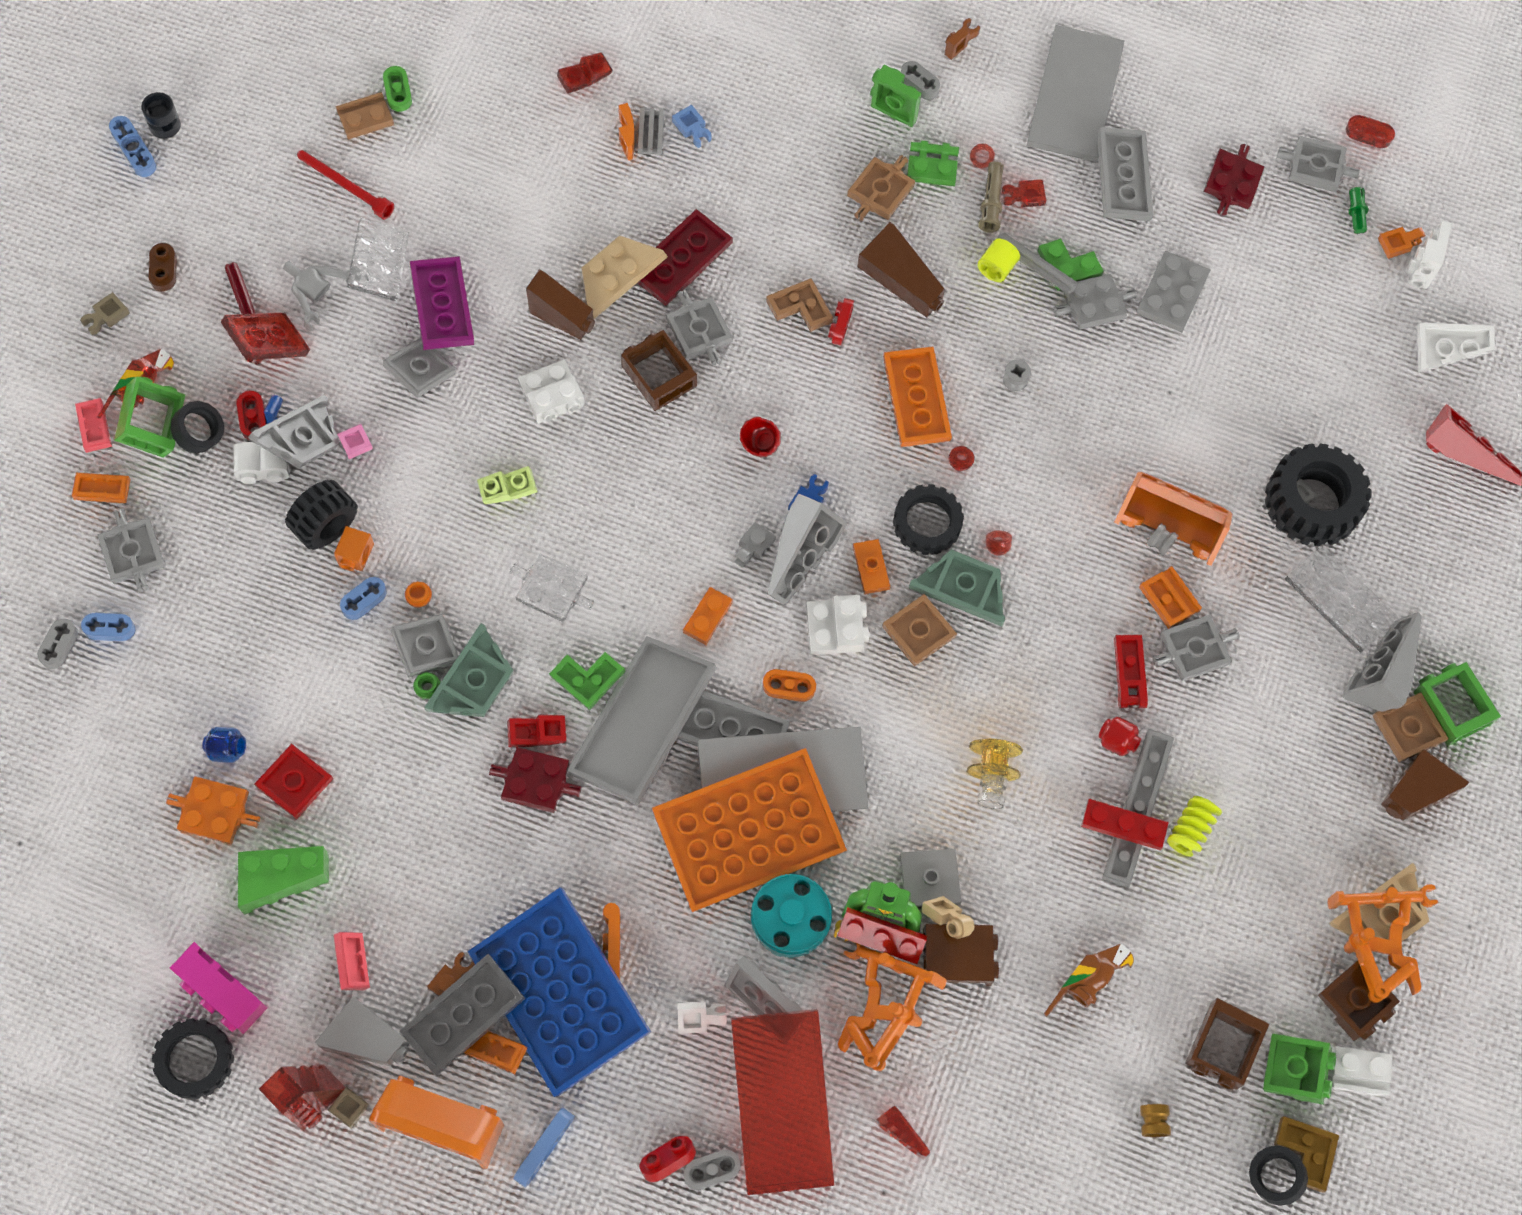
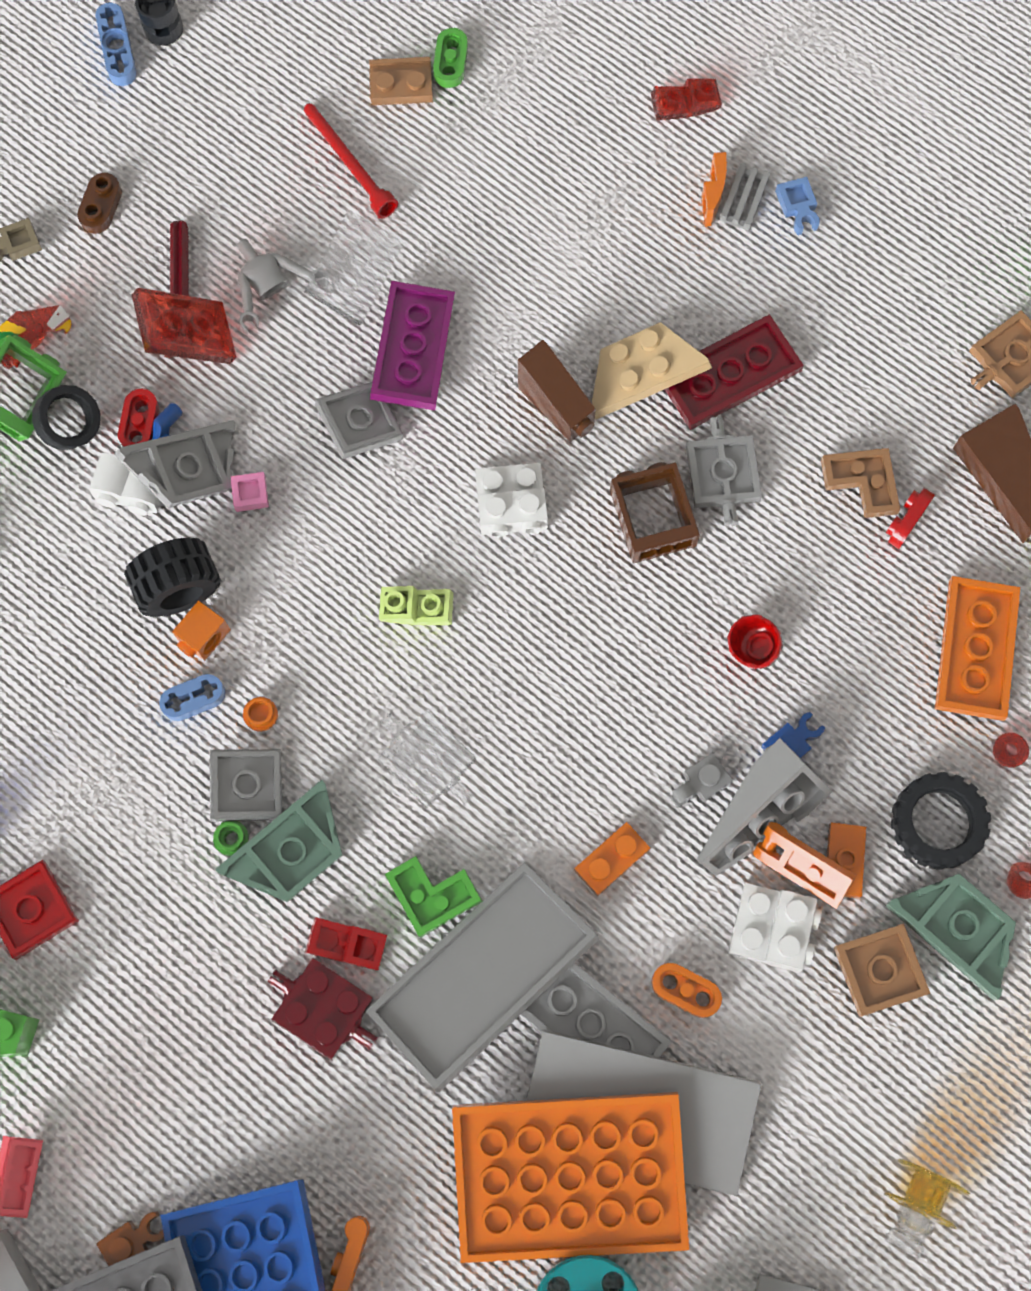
camera: 25 degrees right, 5 degrees up
(843, 575) = (804, 865): none -> plate

